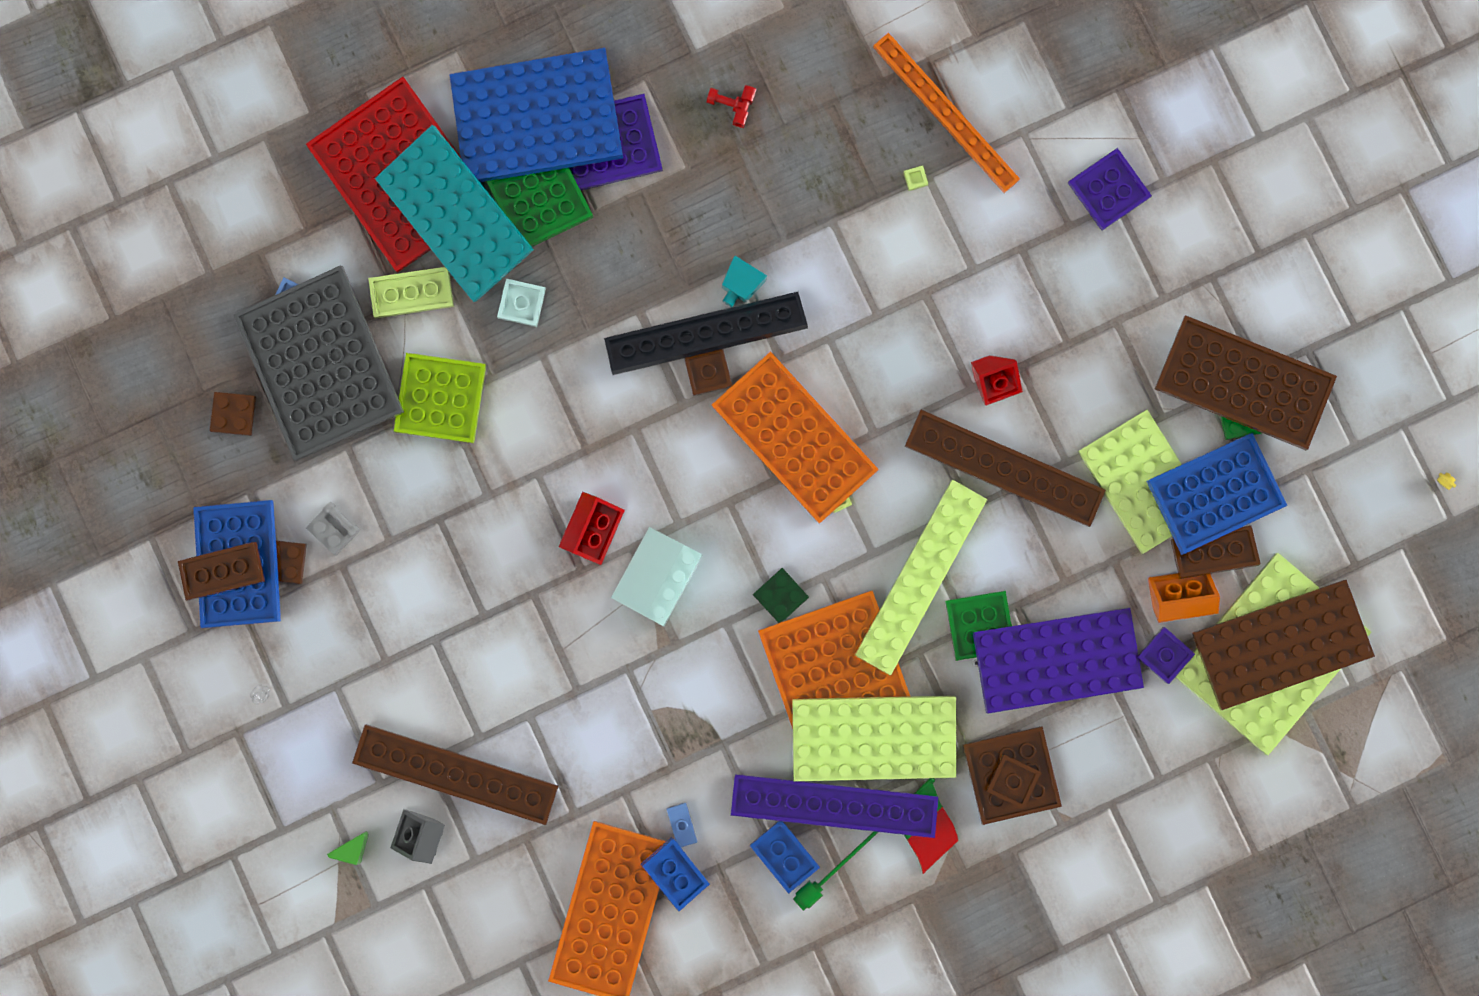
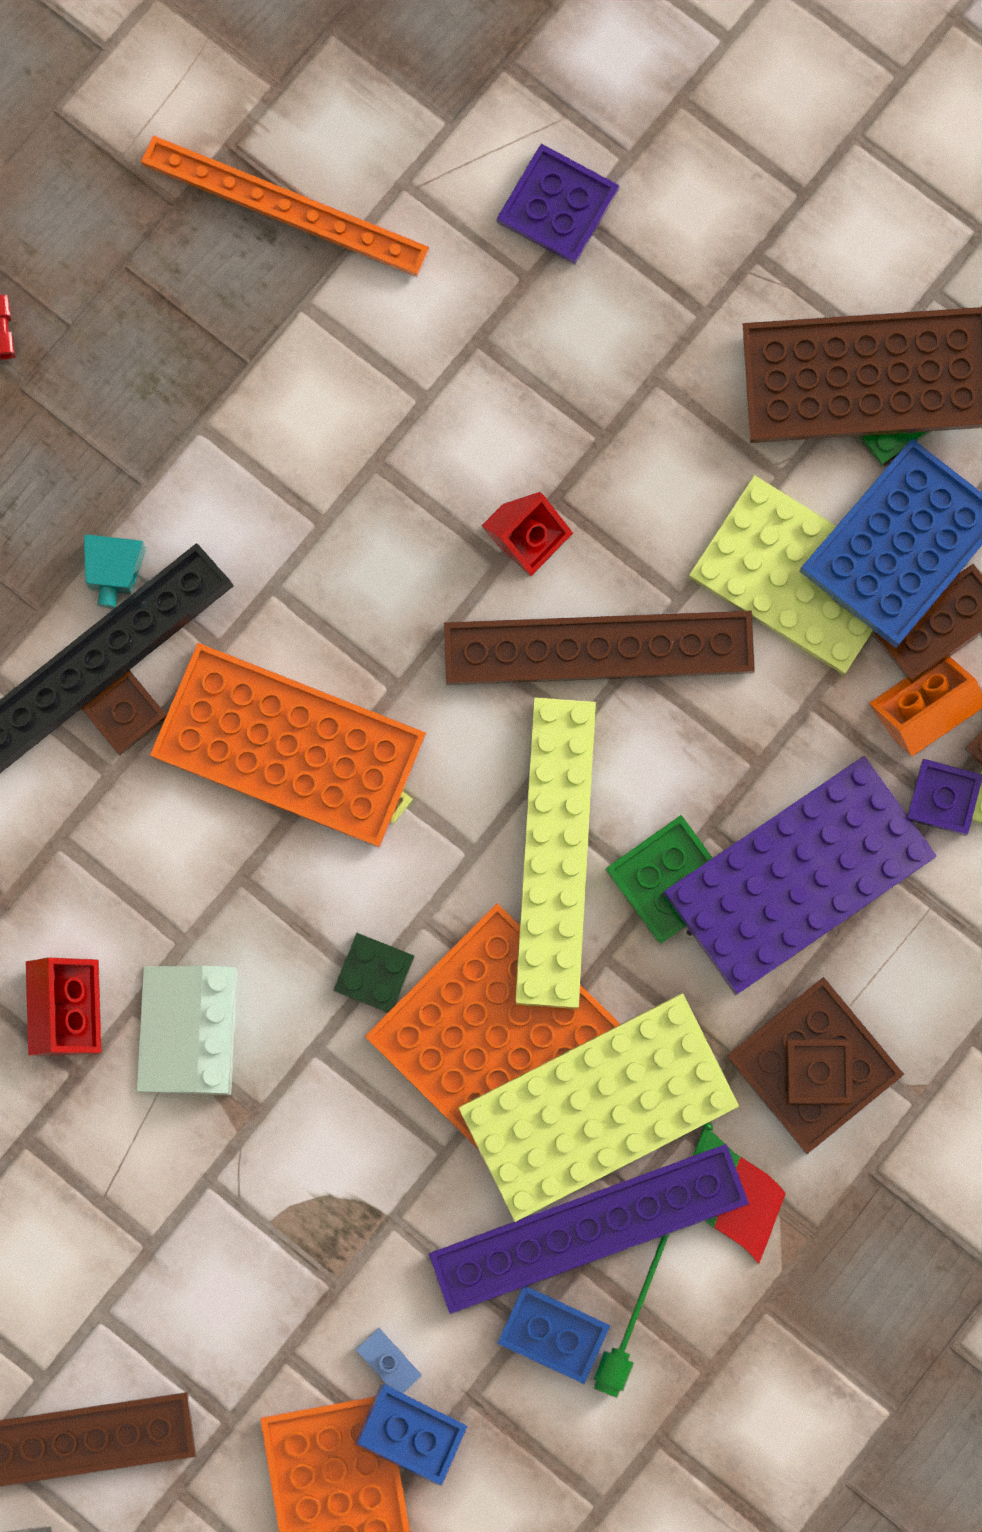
camera: 25 degrees left, 5 degrees down
(915, 178) = (286, 313): yellowish green tile -> none

